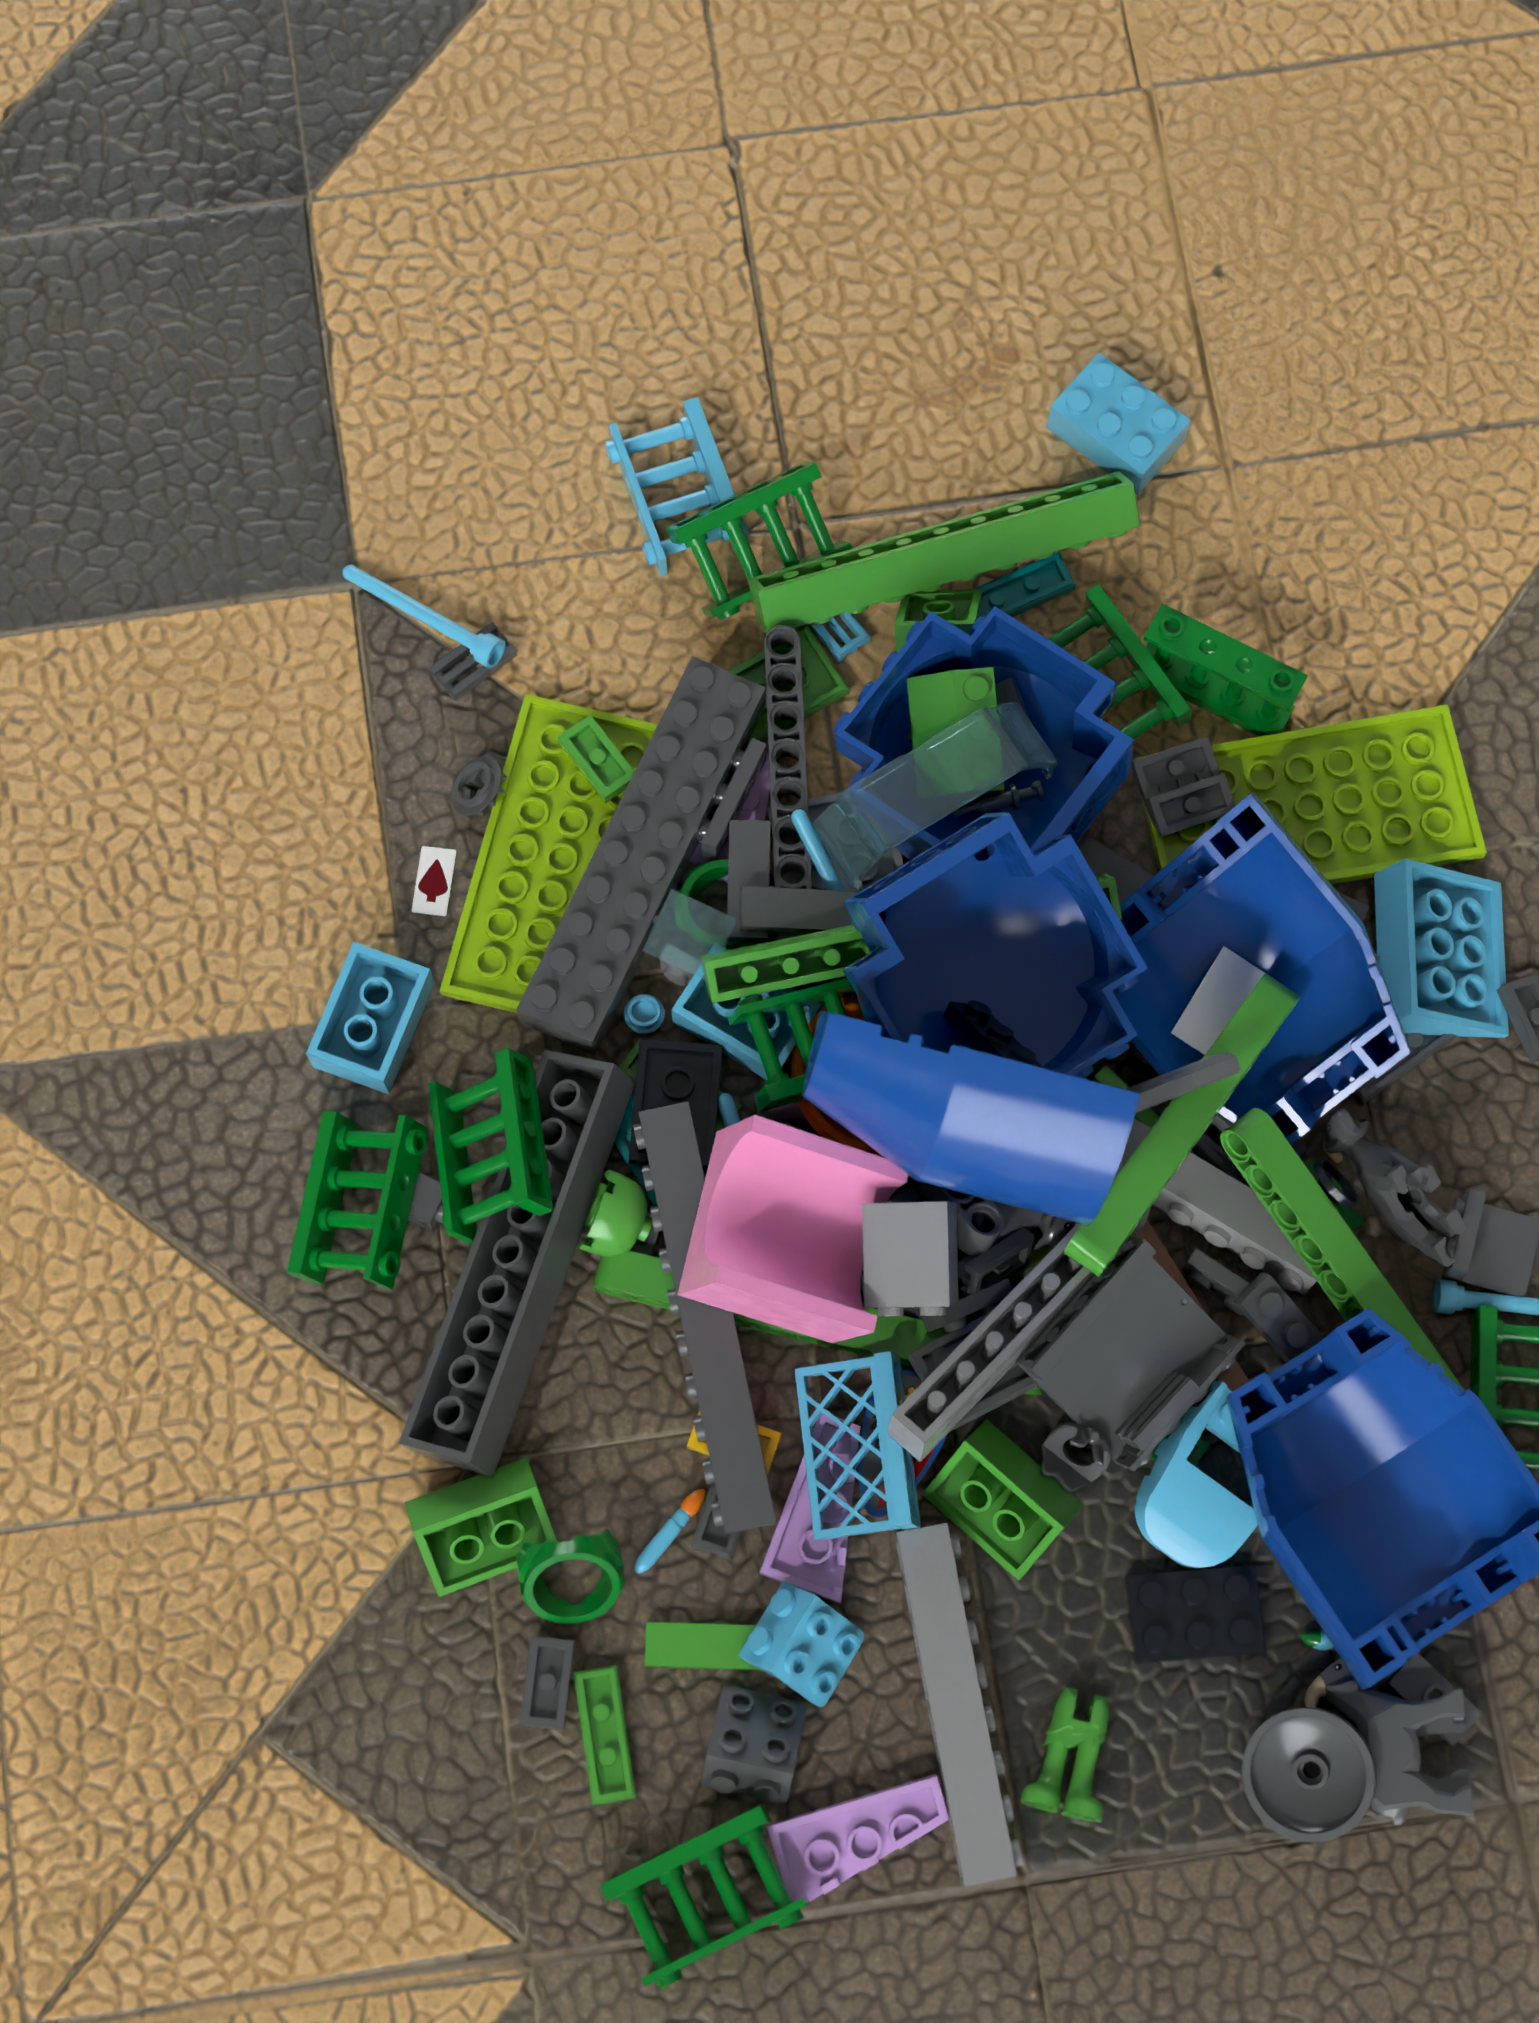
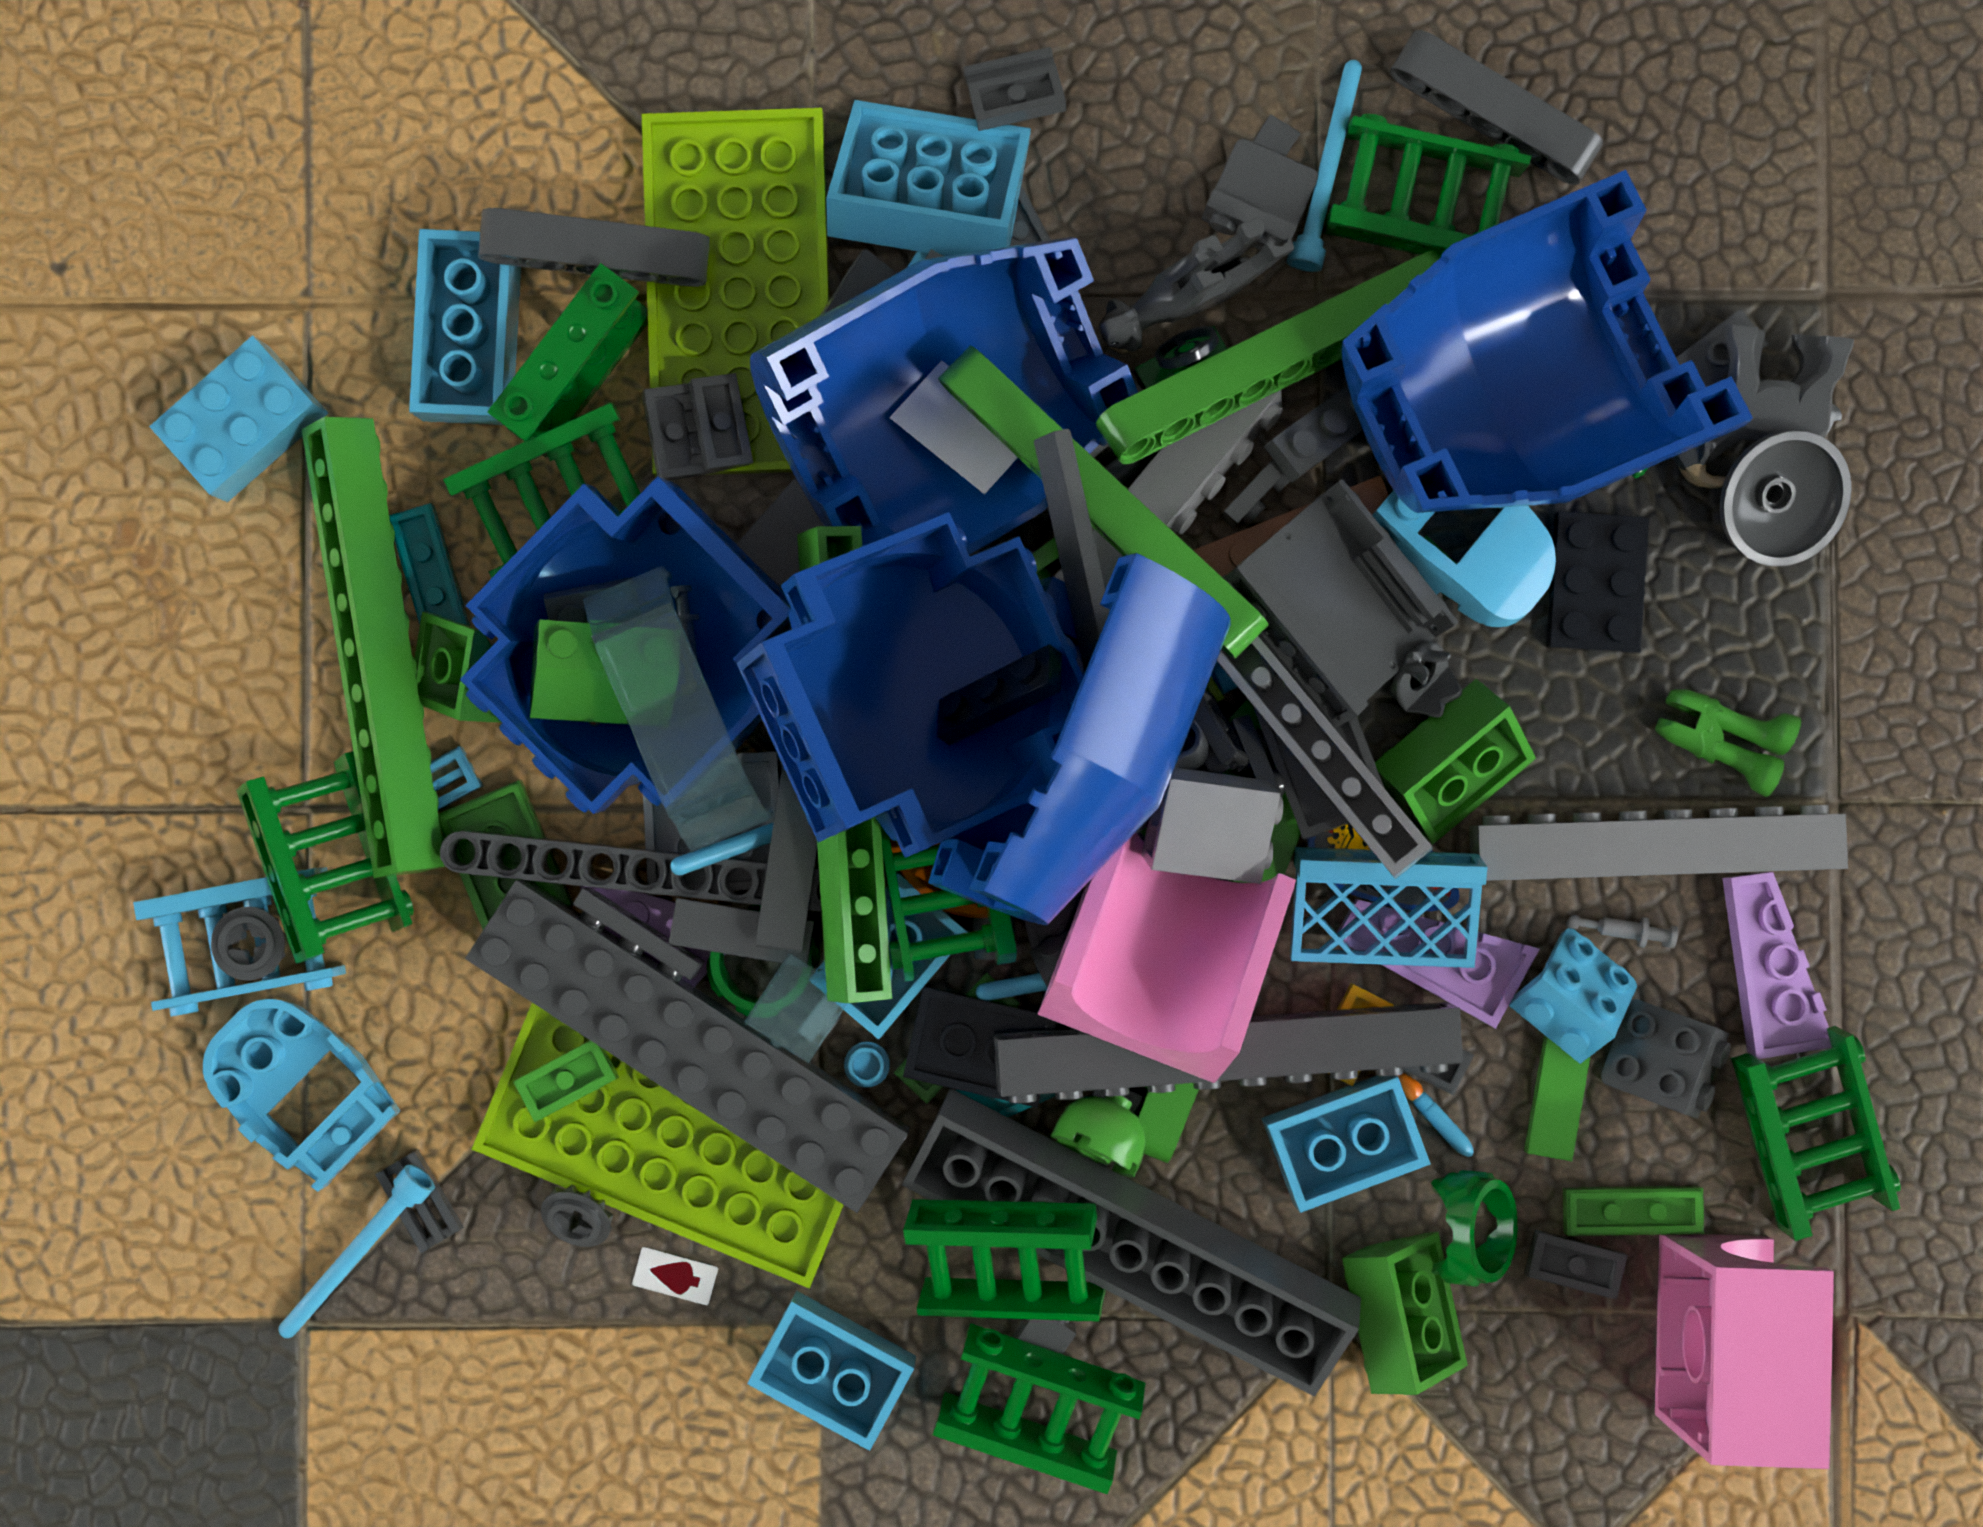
camera: 80 degrees left, 15 degrees up
(494, 1826) = (1744, 1351): none -> bright pink piece
(578, 519) = (264, 1057): none -> medium azure slope
(635, 1442) = (1345, 1141): none -> medium azure brick
(686, 477) = (233, 928): none -> dark grey gear
(871, 1690) = (1628, 930): none -> light grey piece
(1237, 584) = (461, 329): none -> medium azure brick
(1325, 690) = (582, 244): none -> dark grey beam

